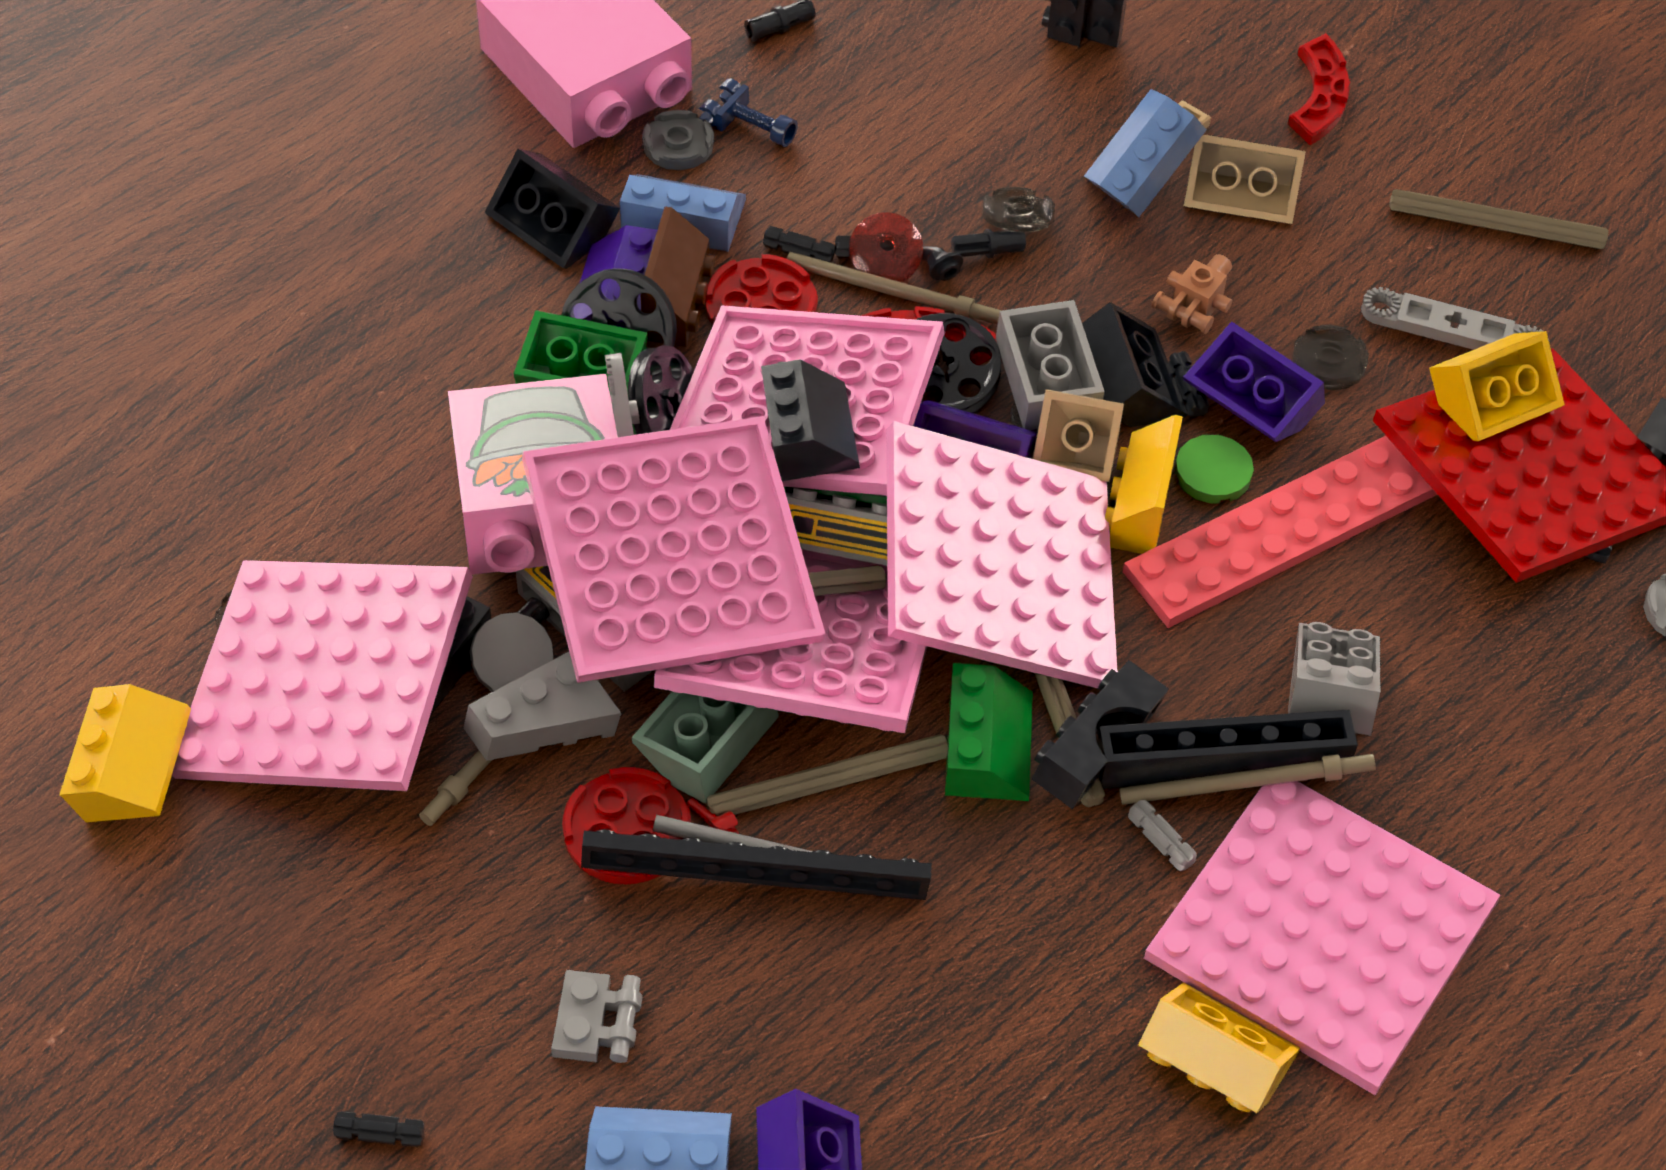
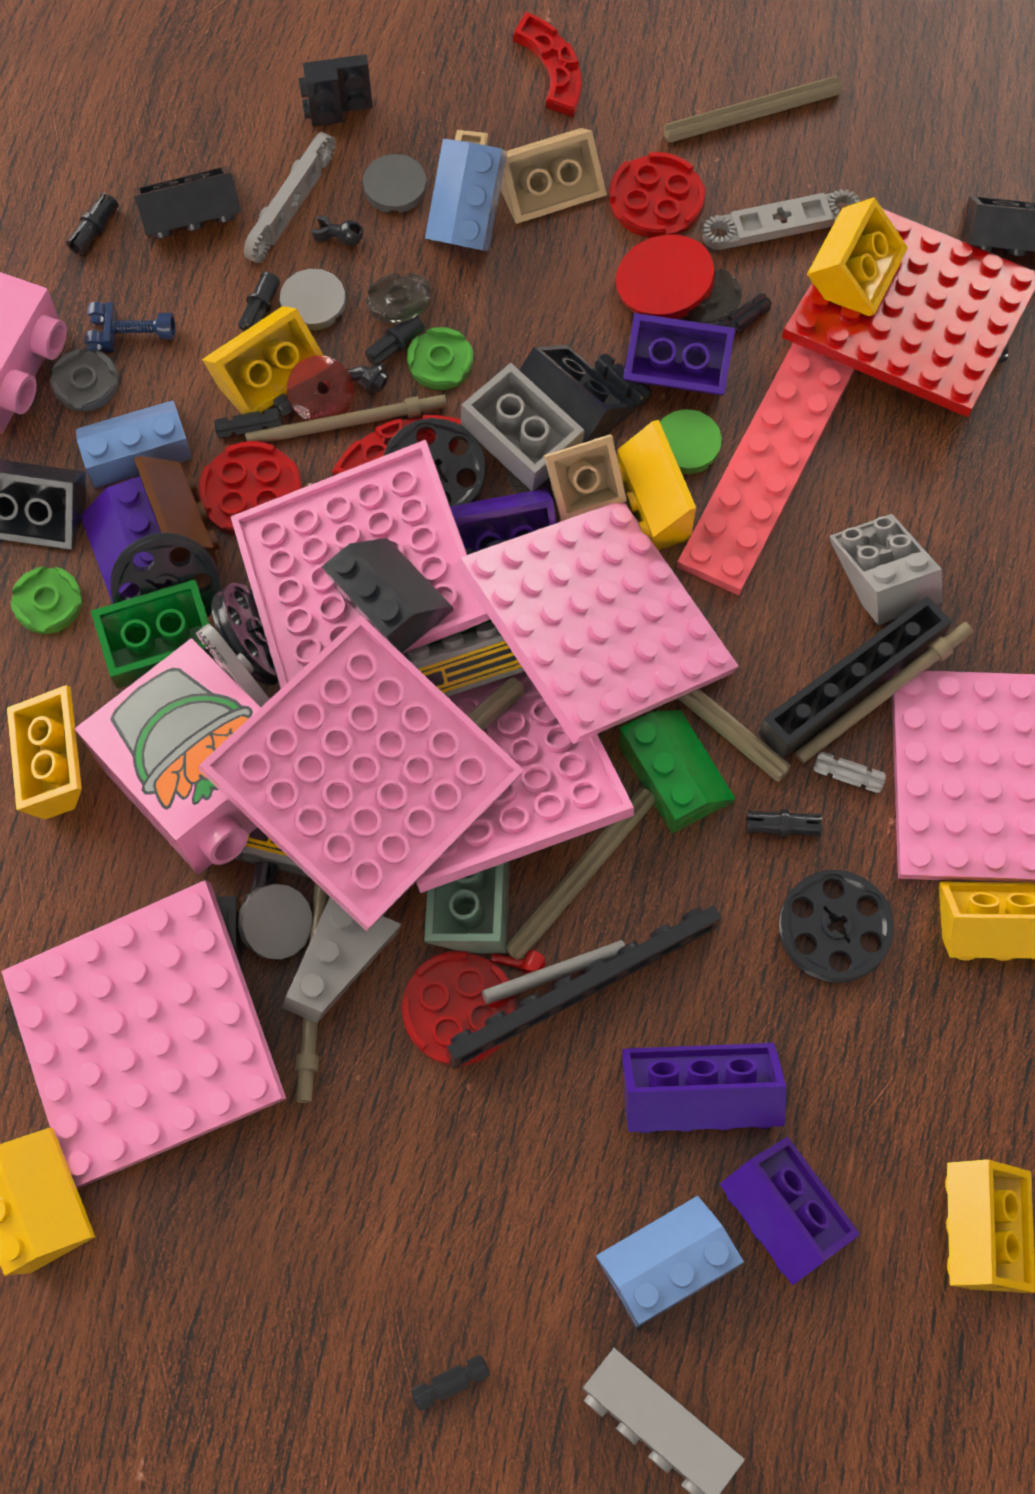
camera: 30 degrees left, 15 degrees up
(409, 408) = (45, 754): none -> yellow slope
(509, 296) = (46, 600): none -> bright green tile
(582, 1015) = (535, 1188): light grey plate -> none
(803, 1020) = (703, 1087): none -> dark purple slope
(839, 198) = (259, 361): none -> yellow slope
(878, 40) = (187, 202): none -> black slope
(884, 153) = (259, 300): none -> black axle
(937, 174) = (316, 296): none -> light grey tile
(977, 80) = (289, 198): none -> light grey piece
(1011, 135) = (349, 232): none -> black arm
(1022, 280) = (440, 358): none -> bright green tile
(1029, 968) = (840, 909): none -> black wedge
(1060, 842) = (783, 823): none -> black pin
(1075, 760) = (761, 758): black arch -> none
(1088, 117) = (394, 183): none -> dark grey tile
(1197, 293) = (581, 297): nougat piece -> none
(1296, 315) = (665, 276): none -> red tile
(1343, 248) = (656, 195): none -> red tile
(1356, 390) = (748, 313): none -> black axle

